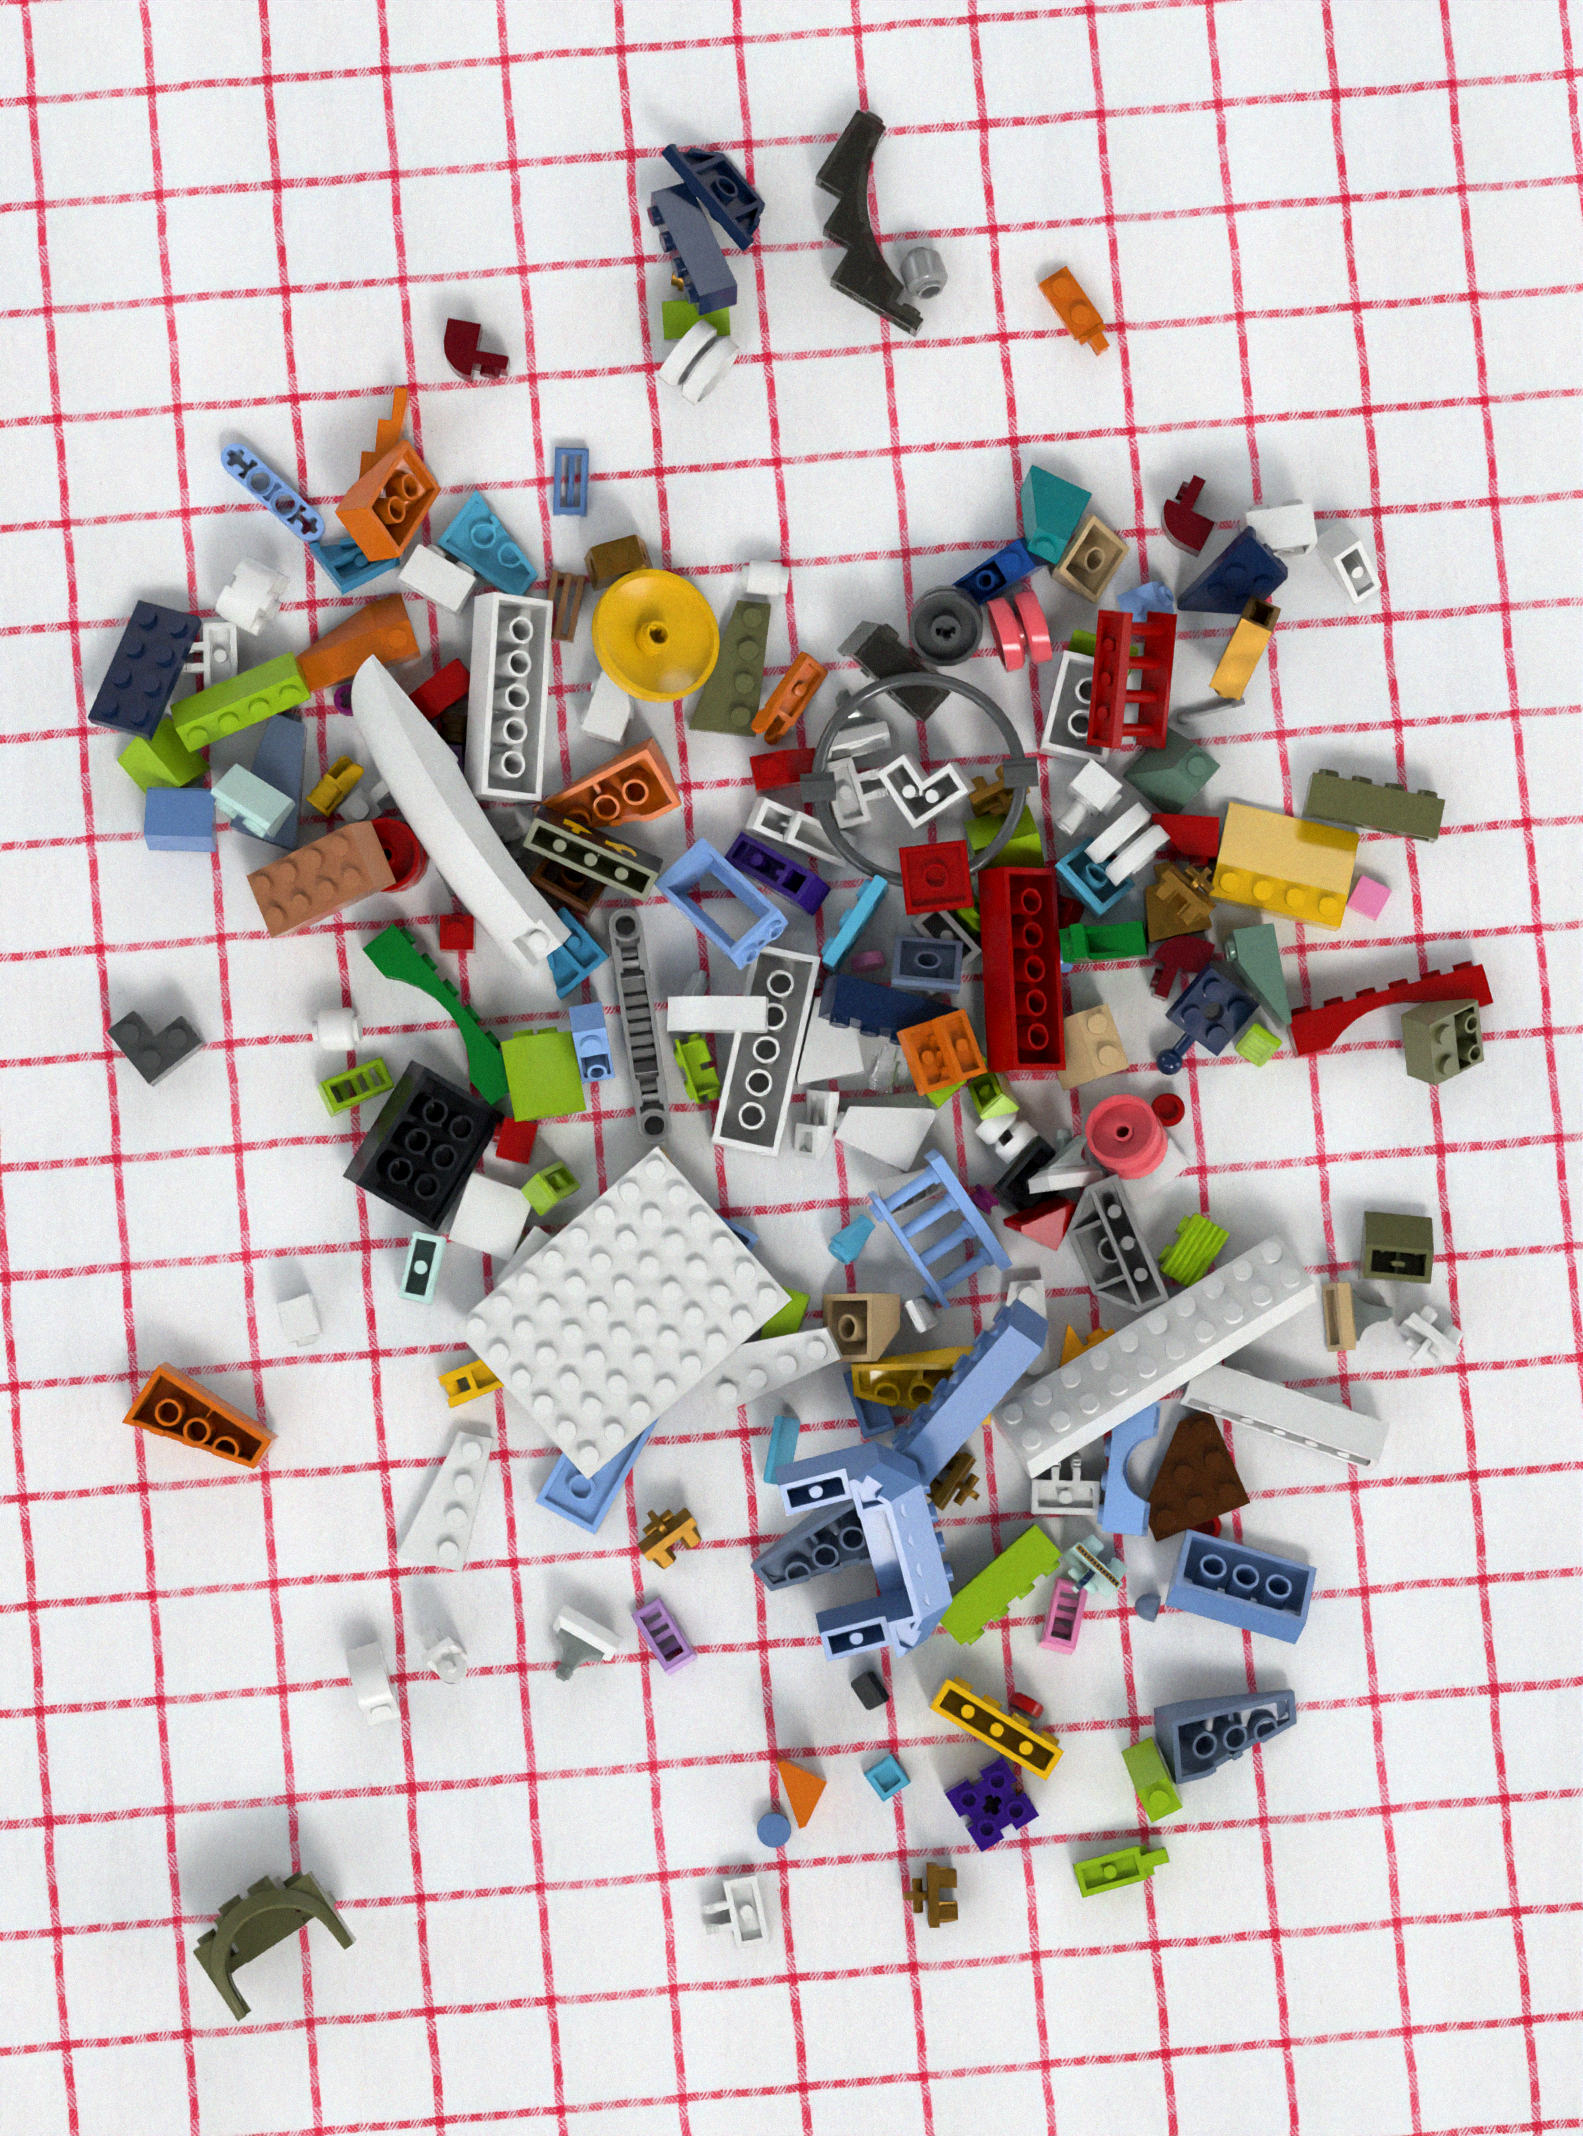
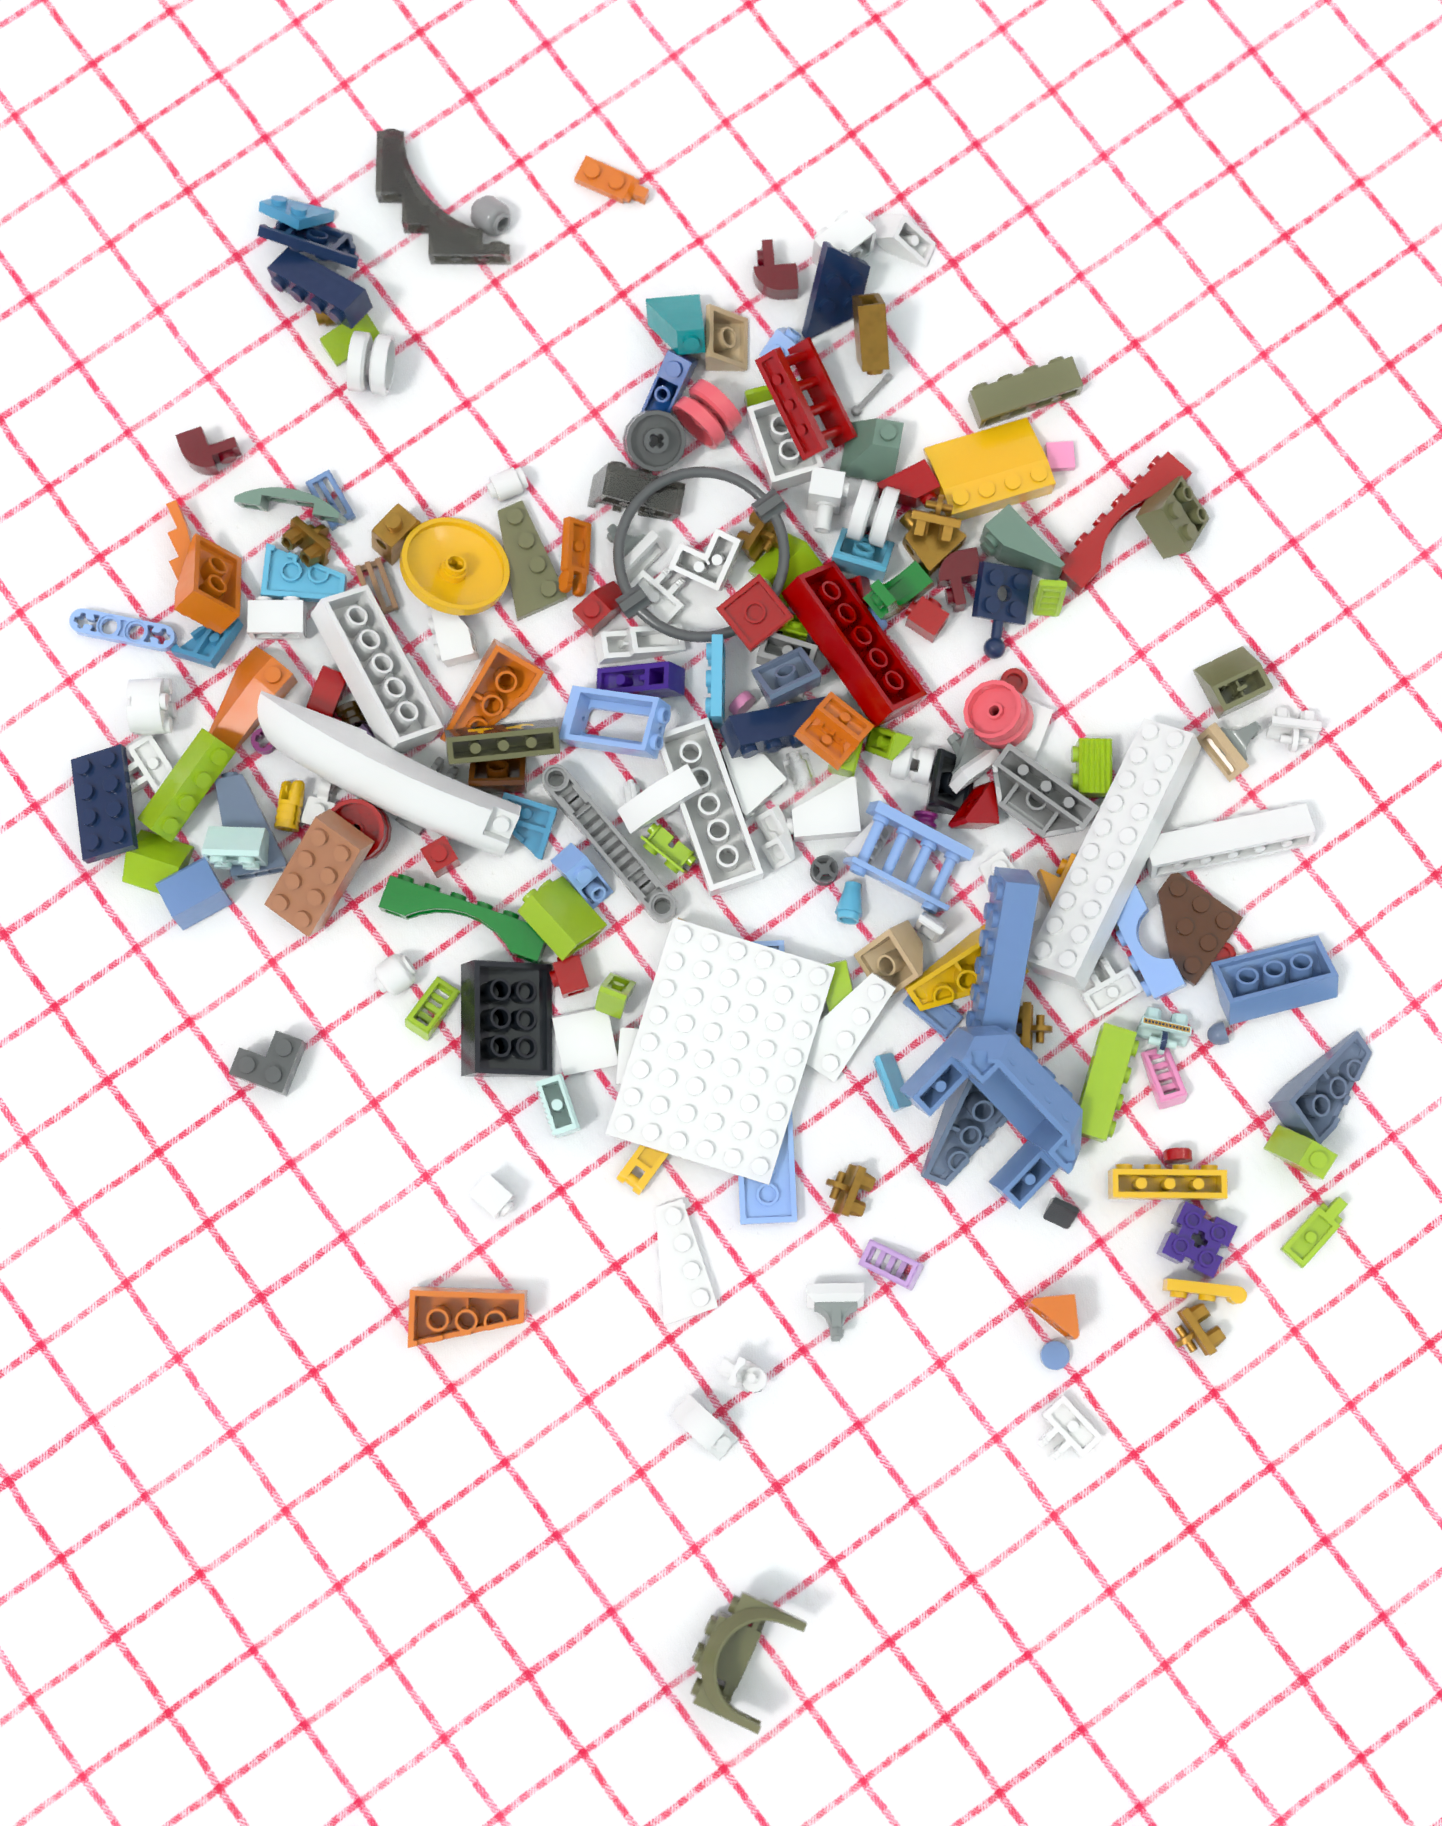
camera: 25 degrees left, 5 degrees down
(498, 439) = (260, 498): none -> sand green slope
(524, 515) = (310, 539): none -> pearl gold hips
(718, 148) = (295, 213): none -> dark azure wing
(846, 1184) = (826, 866): none -> dark grey wheel
(887, 1777) = (1111, 1268): medium azure tile -> none
(967, 1859) = (1204, 1290): none -> yellow plate
(1091, 1047) = (936, 669): tan slope -> none
(1117, 986) = (926, 618): none -> red brick

